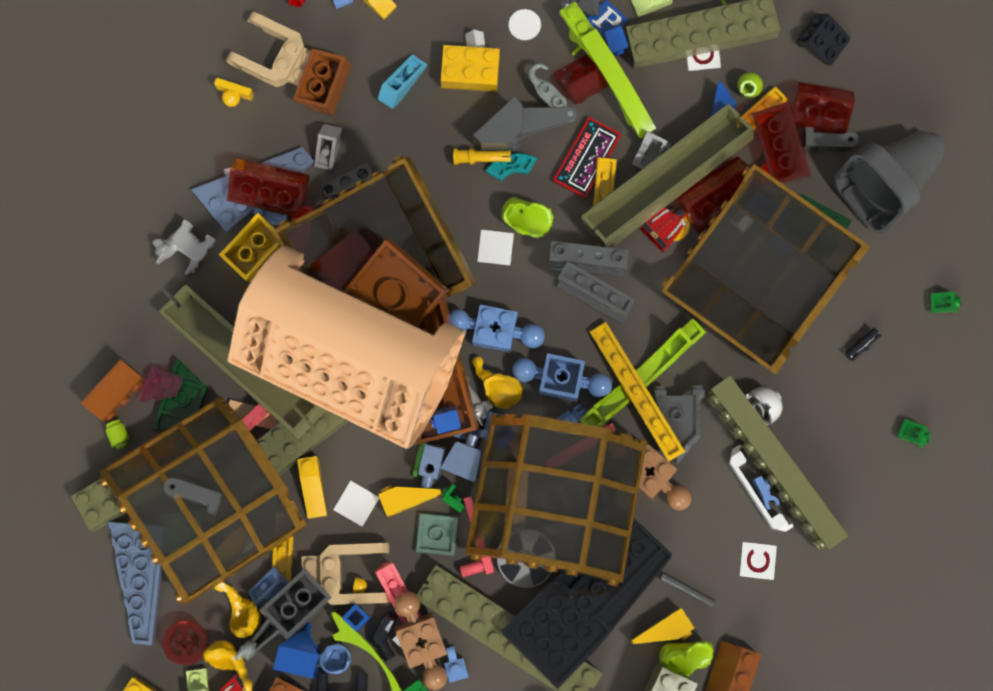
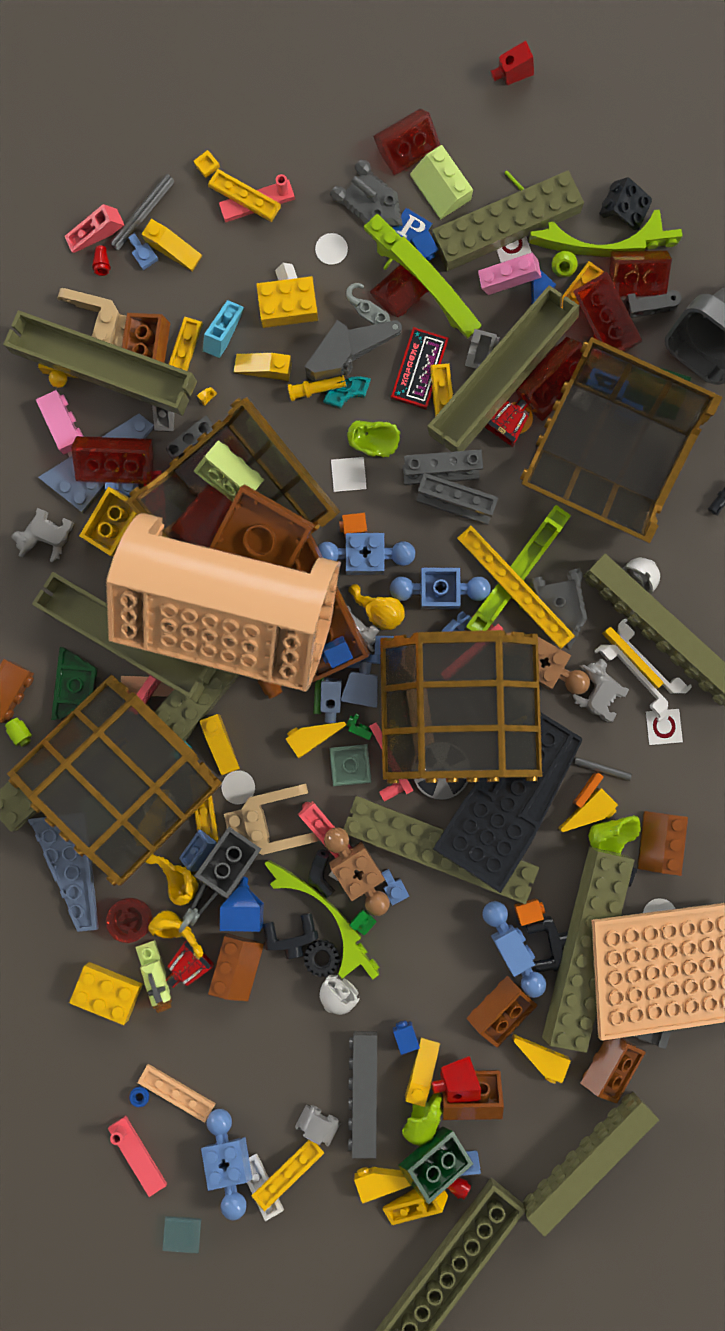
camera: 10 degrees left, 5 degrees up
(159, 385) = (49, 676): clear pink wing -> none
(178, 488) = (84, 777): dark grey leg -> none
(223, 138) = (59, 420): none -> bright pink brick
(276, 92) = (100, 363): none -> olive piece
(321, 533) = (238, 787): none -> white sticker
(335, 659) = (277, 906): medium blue hair -> none
(356, 503) = (265, 751): white sticker -> none
(356, 617) = (289, 862): blue brick -> none
(357, 97) = (185, 343): none -> yellow tile
(359, 586) = (286, 830): yellow hinge -> none
(372, 142) = (206, 395): none -> yellow tile
(373, 441) = (270, 689): none -> dark orange brick
(376, 222) = (226, 471): none -> yellowish green slope
(434, 125) = (264, 365): none -> yellow slope
(489, 297) = (353, 523): none -> orange brick
(670, 605) = (587, 790): none -> orange tile
(693, 84) = (509, 274): none -> bright pink brick
(703, 513) = (603, 693): none -> light grey animal
(739, 485) = (614, 638): none -> yellow tile
(757, 538) = (660, 705): none -> white piece
(763, 487) = (655, 656): medium blue plate -> none
(839, 74) = (648, 237): none -> lime slope

